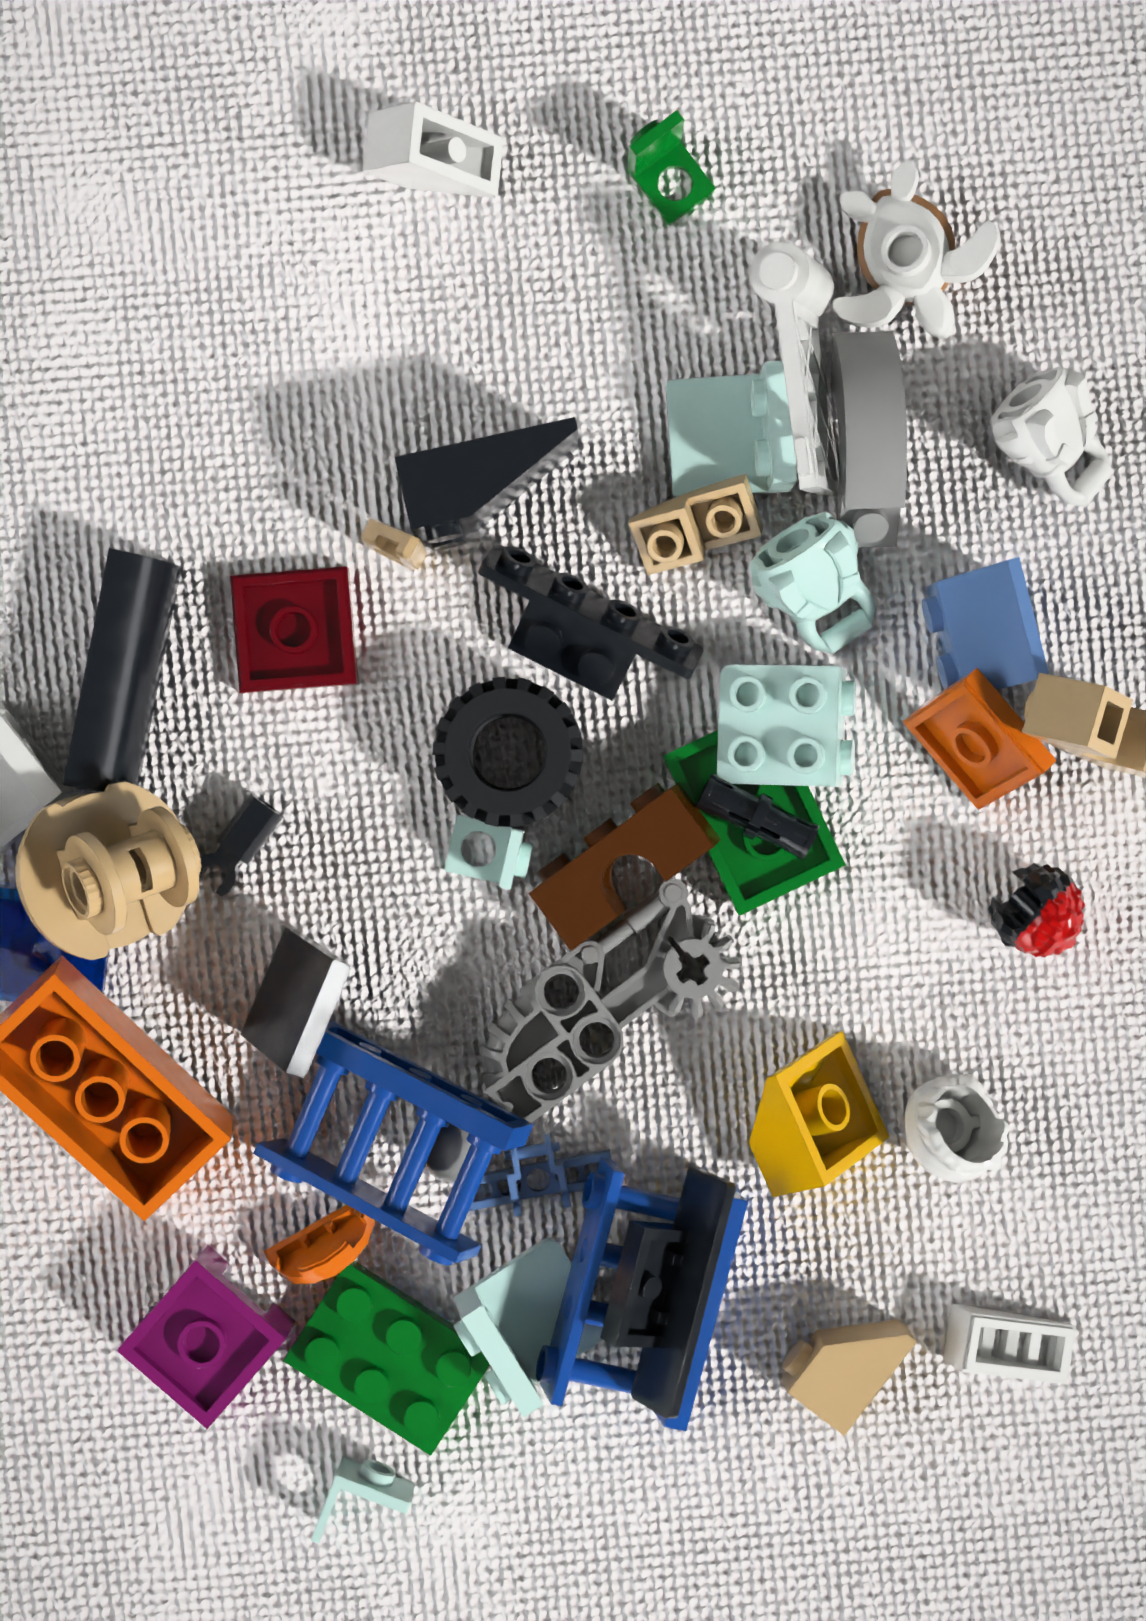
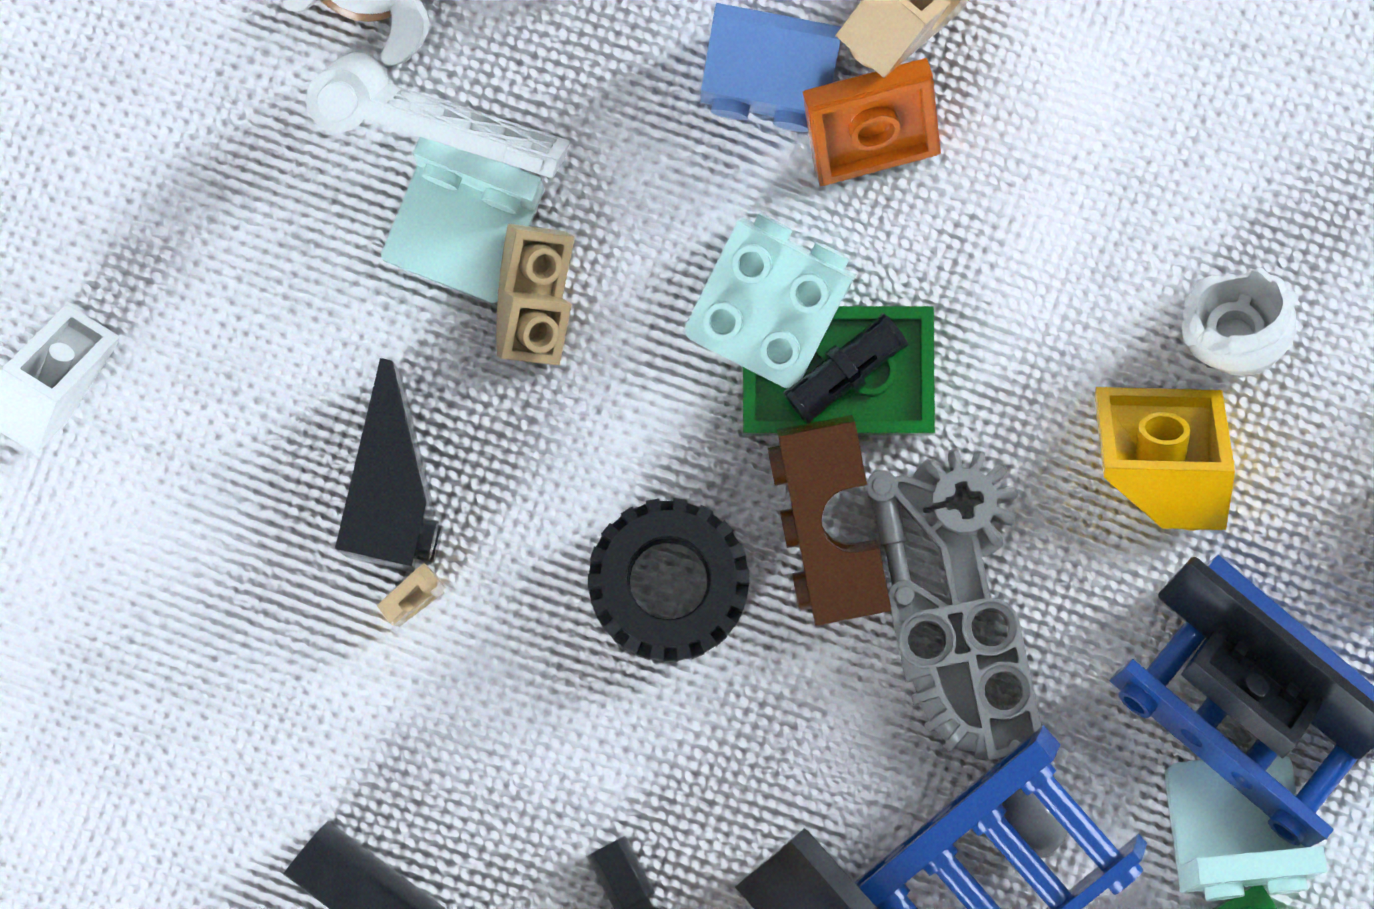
camera: 65 degrees left, 5 degrees down
(294, 630) = (446, 737): dark red tile -> none
(511, 854) = (770, 628): light aqua bracket -> none
(552, 1167) = (1097, 737): medium blue piece -> none
(581, 630) = (583, 454): black bracket -> none
(657, 150) = (154, 156): green bracket -> none
(810, 575) = (636, 208): light aqua piece -> none
(872, 435) = (533, 87): light grey arch -> none
(1042, 914) = (1070, 141): piece -> none

